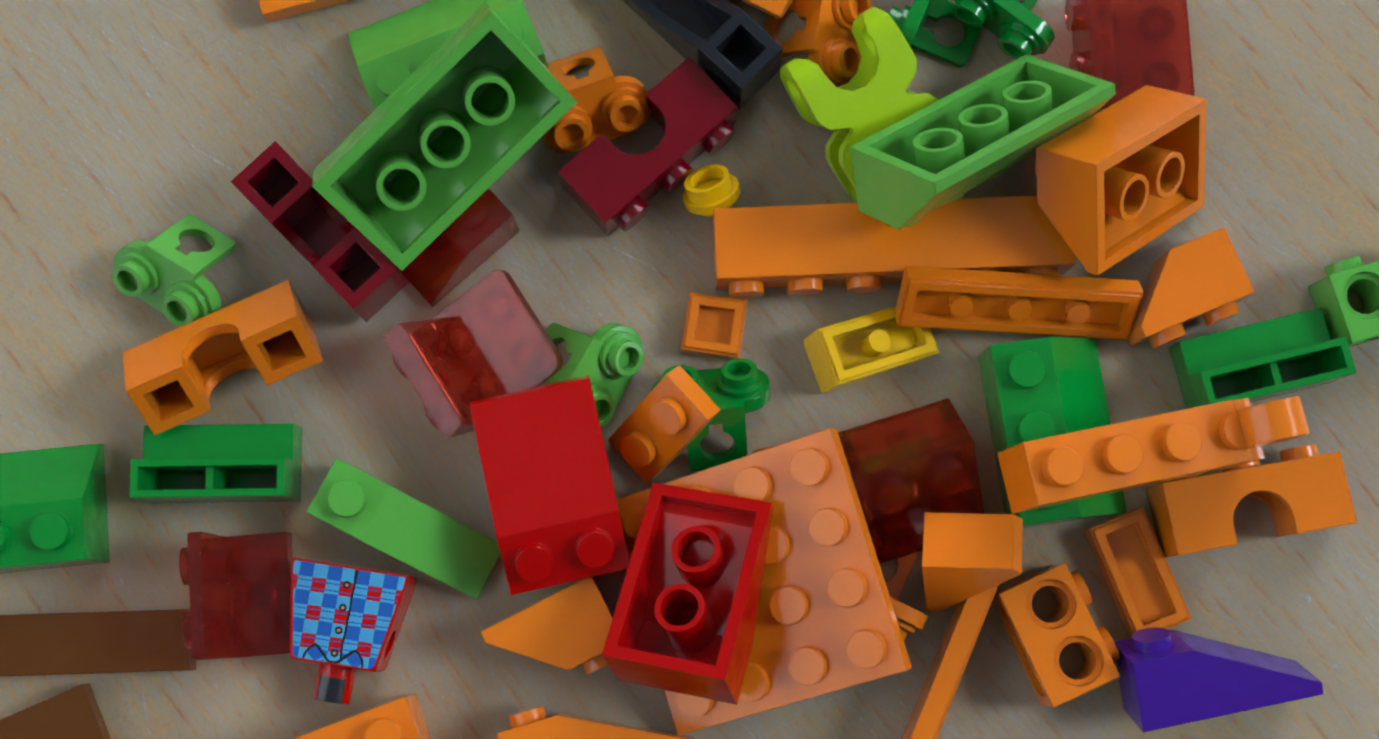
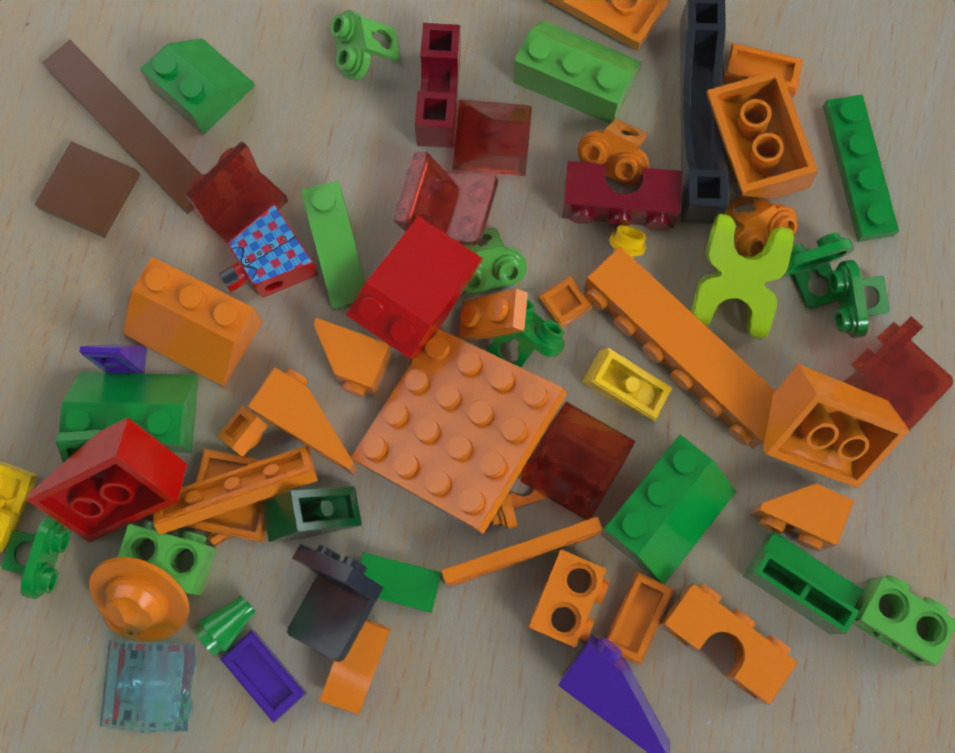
camera: 50 degrees right, 5 degrees down
(177, 371) = (317, 83): orange arch -> none
(219, 464) = (290, 138): green piece -> none
(442, 137) = (532, 90): bright green slope -> none
(691, 593) = (421, 395): red slope -> none
(968, 555) = (563, 512): orange slope -> none
(970, 137) = (771, 331): bright green slope -> none
(1017, 302) = (716, 434): orange tile -> none
(1146, 451) = (700, 553): orange hinge -> none

